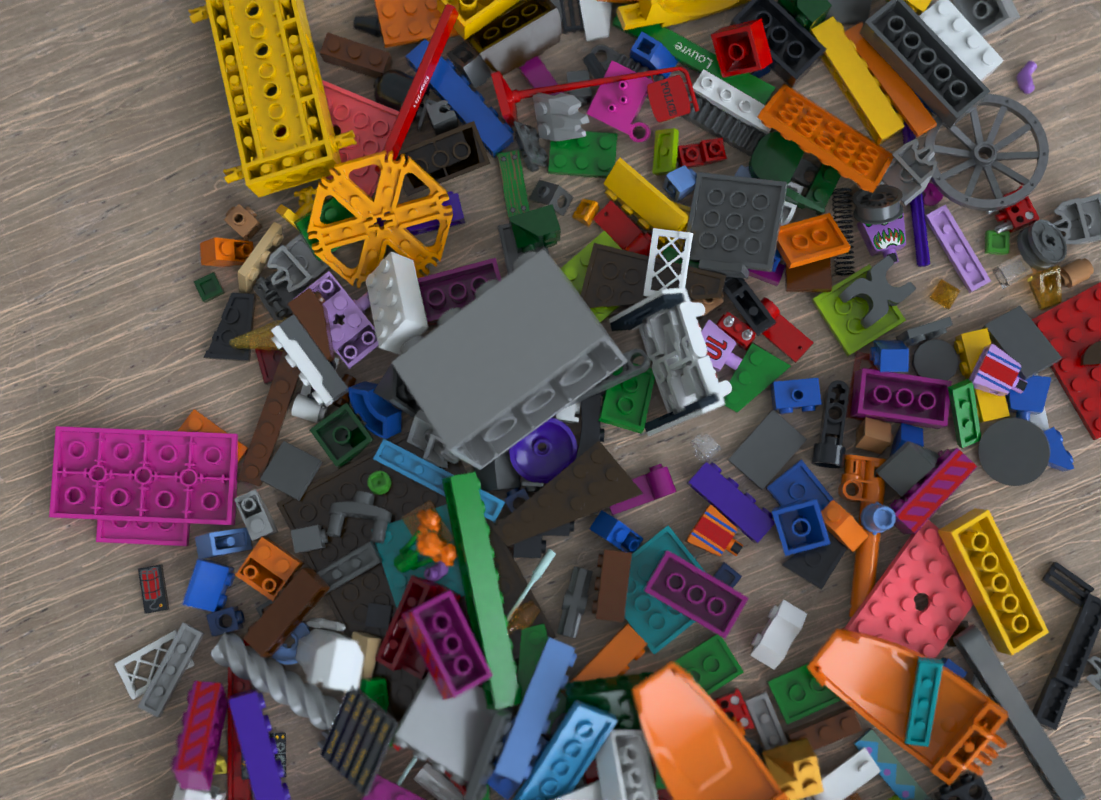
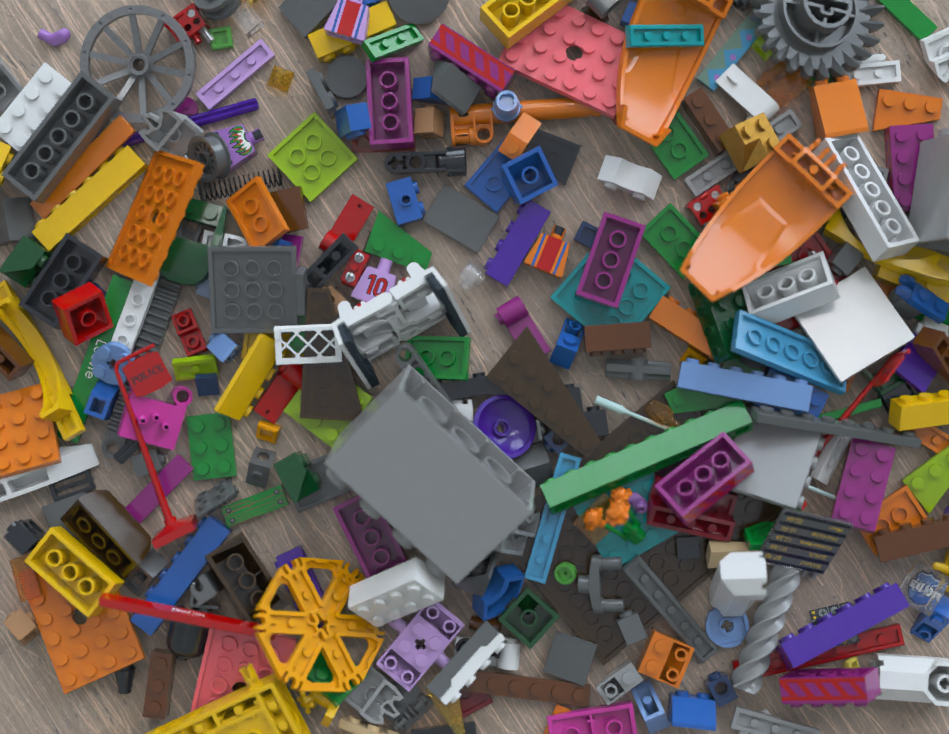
camera: 105 degrees left, 5 degrees up
(286, 612) = (702, 633): reddish brown brick -> none
(314, 317) = (425, 667): reddish brown slope -> none
(322, 623) = (704, 594): white piece -> none
(559, 116) = (183, 475): light grey plate -> none
(578, 665) = (693, 354): none -> light orange slope
(645, 160) = (207, 384): none -> dark blue tile
(693, 60) = (102, 358): none -> medium blue plate
(877, 292) = (293, 143): dark grey piece -> none

